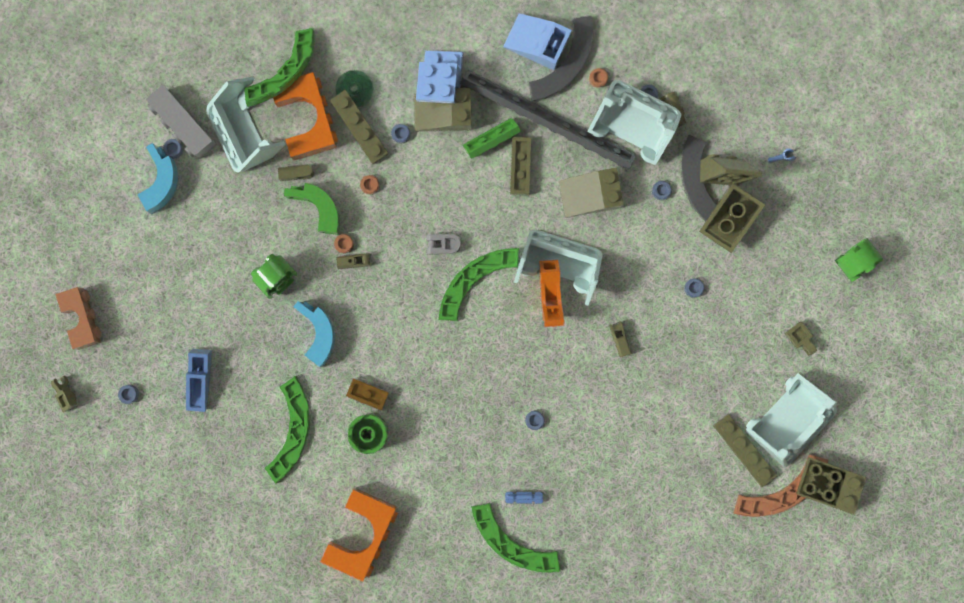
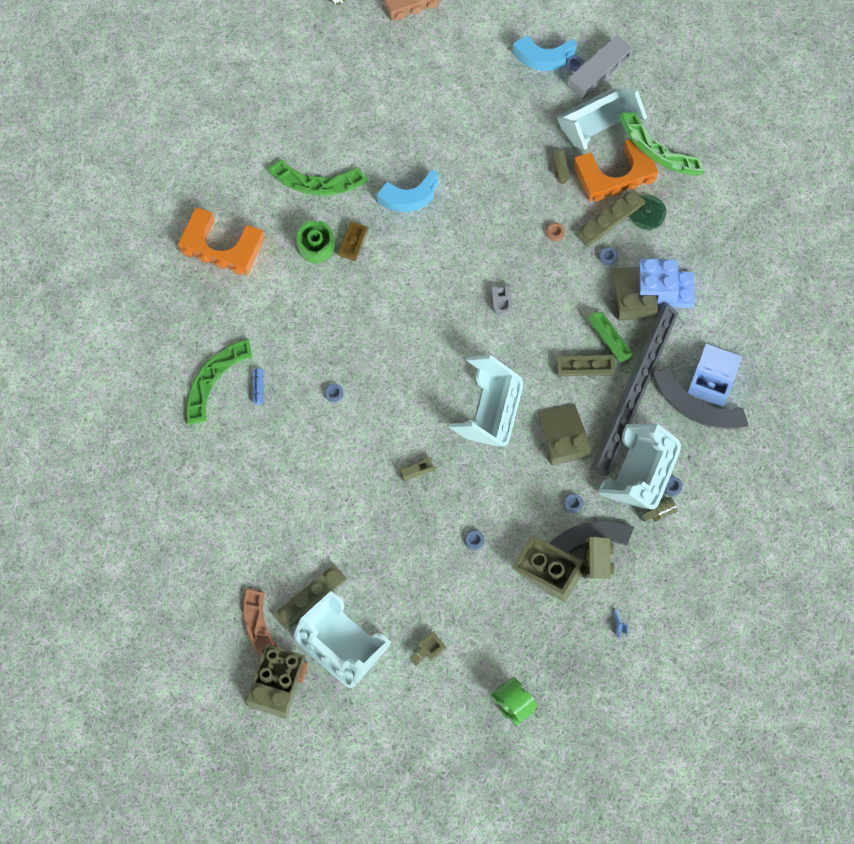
camera: 90 degrees right, 15 degrees down
(128, 394) = (345, 45): sand blue tile -> none
(198, 379) = (361, 98): medium blue slope -> none
(273, 275) = (460, 151): bright green brick -> none
(328, 213) = (526, 195): bright green arch -> none
(343, 243) = (496, 213): nougat tile -> none
(350, 261) = (479, 220): olive bar -> none
(470, 275) = (469, 323): bright green tile -> none
(550, 293) = (459, 399): orange arch -> none
(598, 78) = (685, 436): nougat tile -> none

